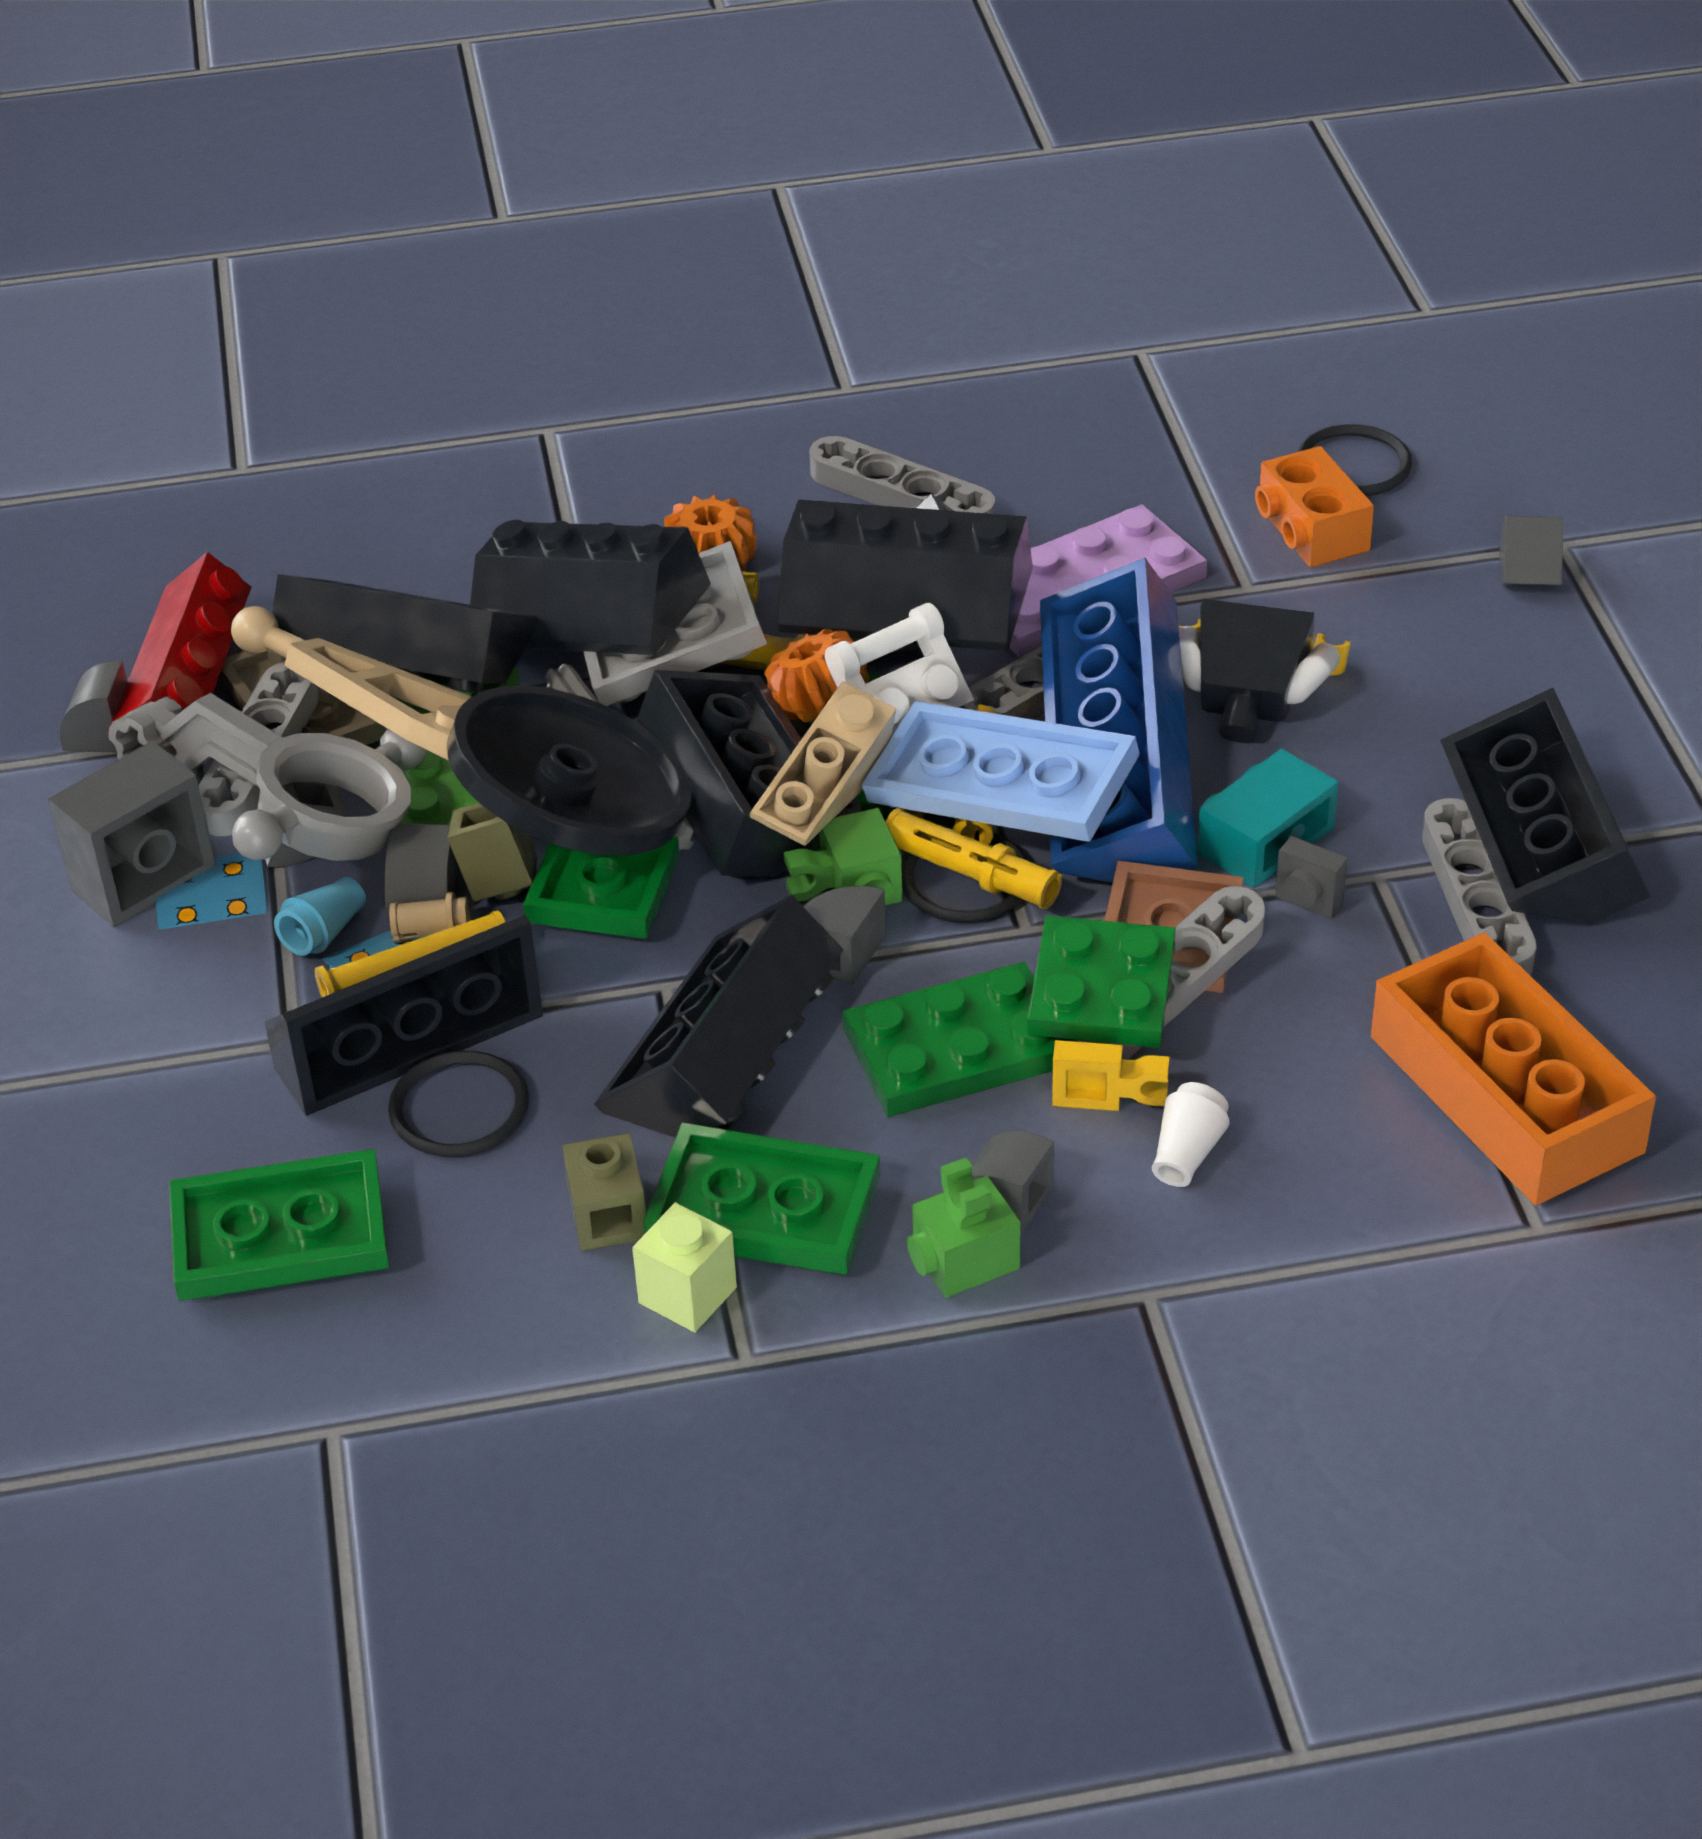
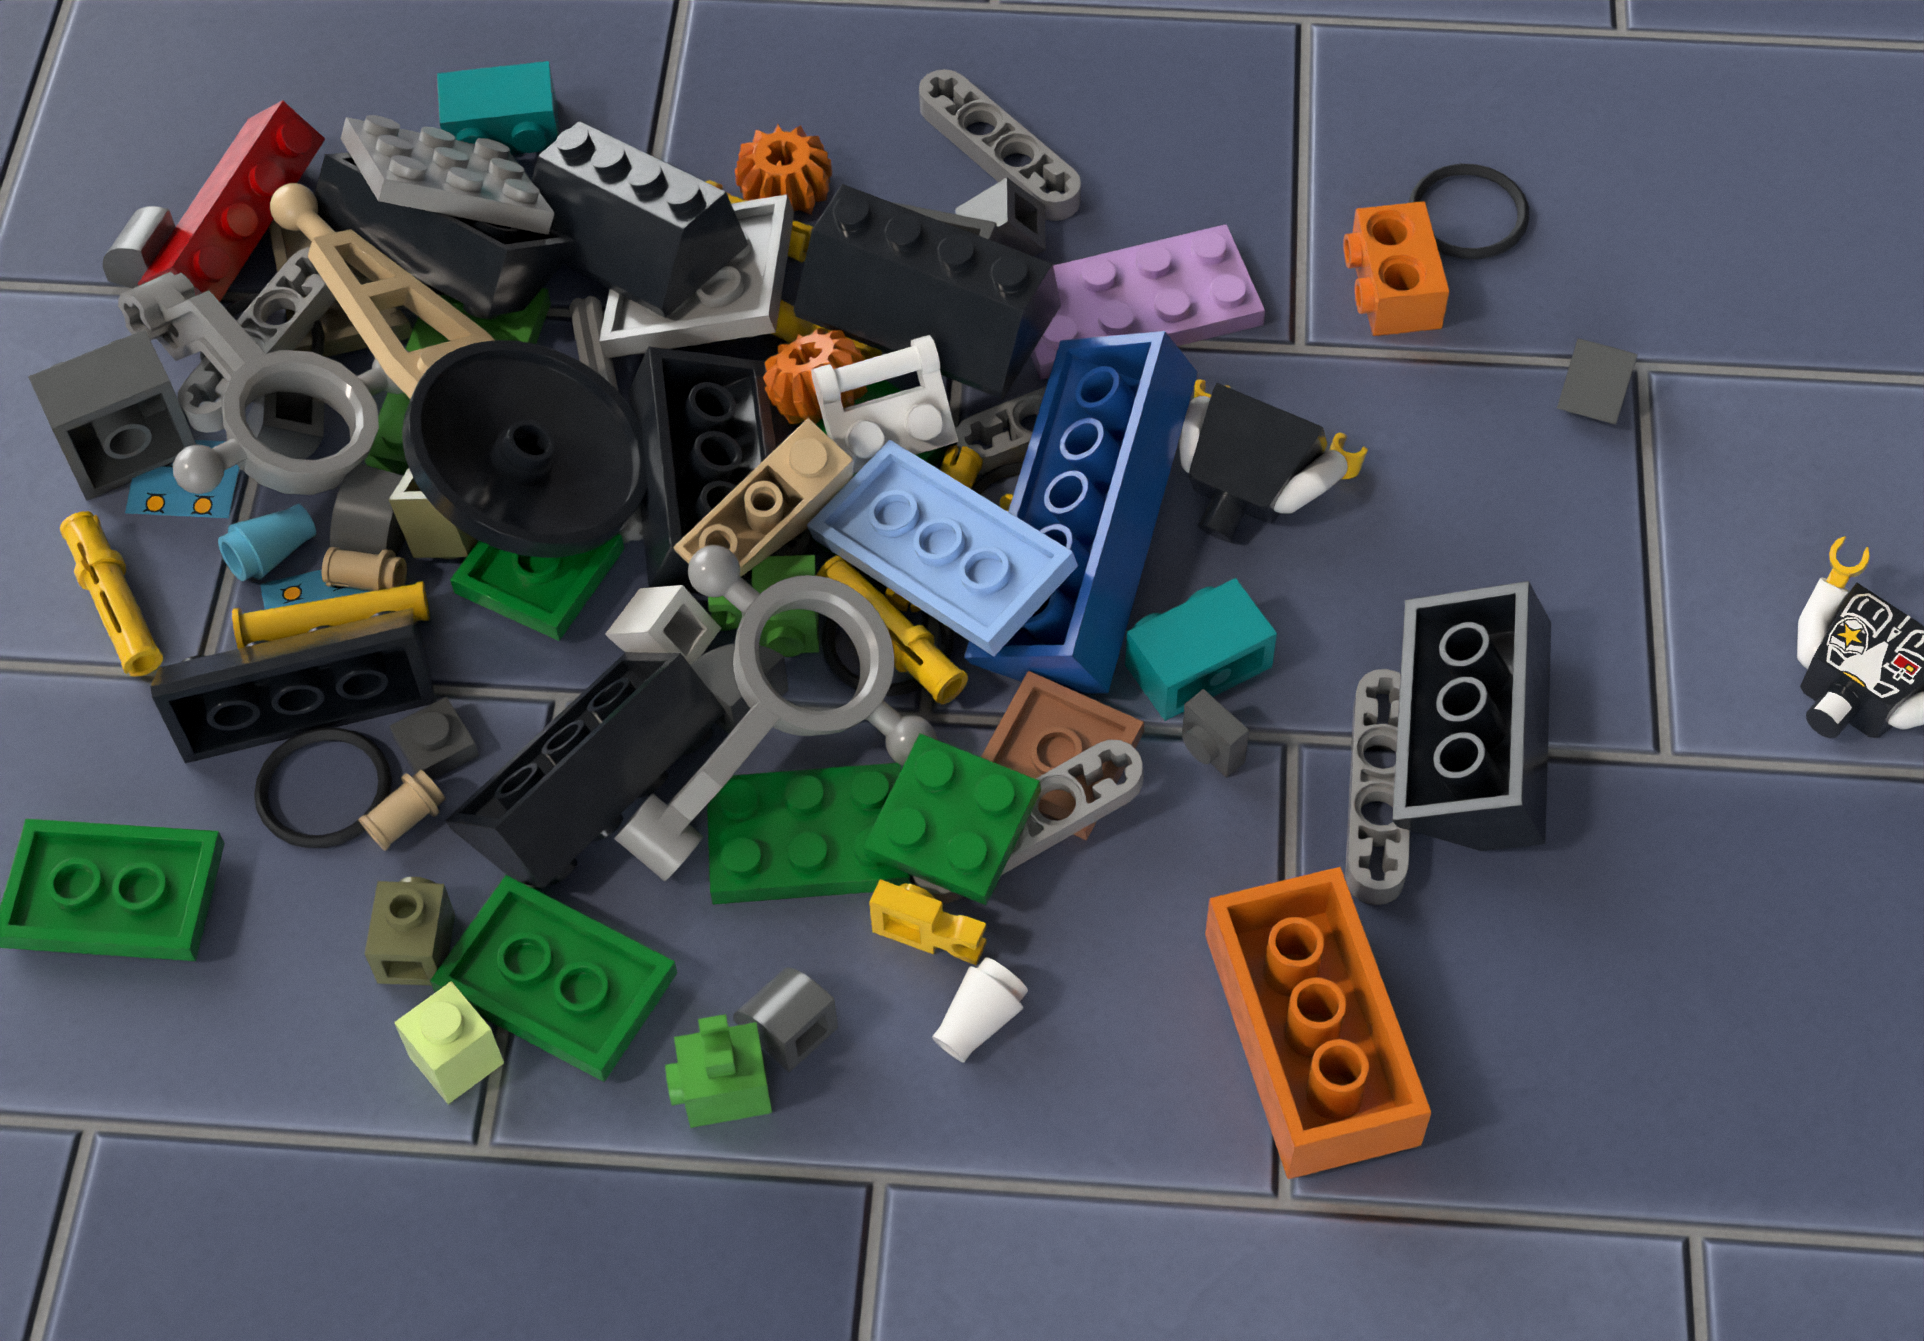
camera: 15 degrees right, 15 degrees up
(137, 951) = (102, 574): none -> yellow pin
(396, 575) = (445, 174): none -> light grey plate
(411, 540) = (501, 105): none -> teal brick
(556, 1042) = (434, 739): none -> dark grey plate
(560, 1087) = (403, 809): none -> tan pin
(742, 894) = (664, 622): none -> white brick
(821, 1055) = (661, 832): none -> light grey piece

